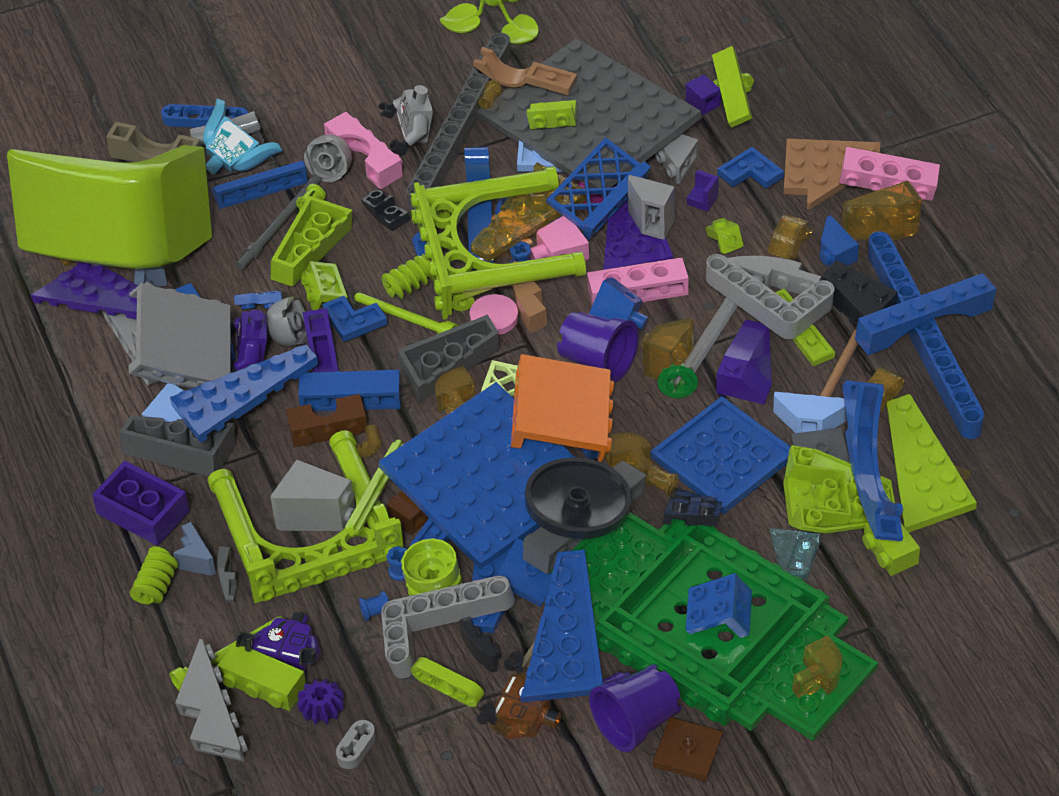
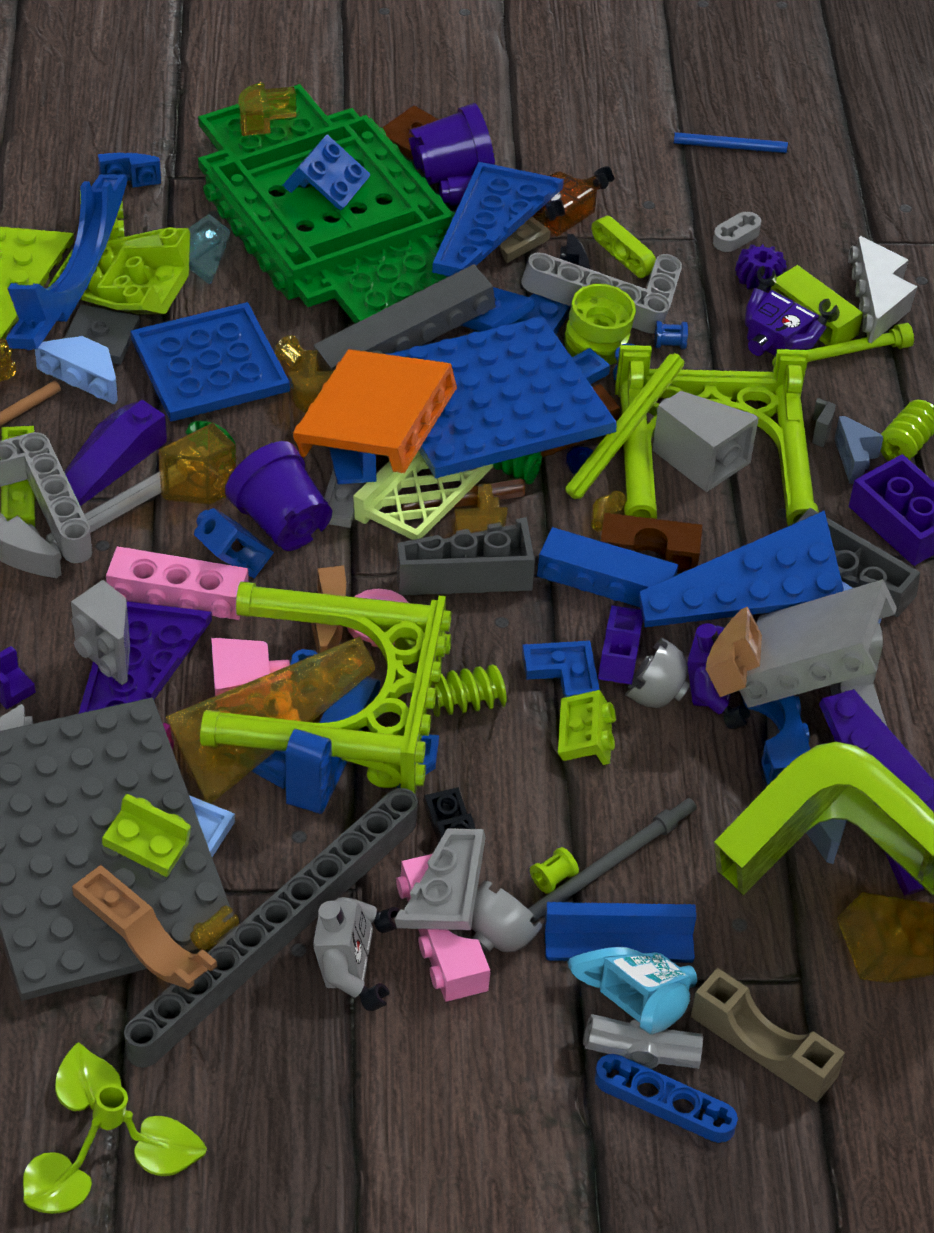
camera: 165 degrees left, 0 degrees up
(232, 312) = (735, 653): none -> medium nougat slope
(267, 298) = (669, 729): blue plate -> none
(309, 238) = (584, 790): lime wedge -> none
(365, 146) = (449, 885): none -> light grey wing
(406, 315) = (493, 654): lime piece -> none
(577, 498) = (415, 293): black dish -> none
(611, 203) = (137, 677): blue fence -> none
(692, 508) = (291, 285): black wing -> none
(726, 233) = (22, 615): lime bracket -> none
(898, 605) = (139, 168): none -> blue slope

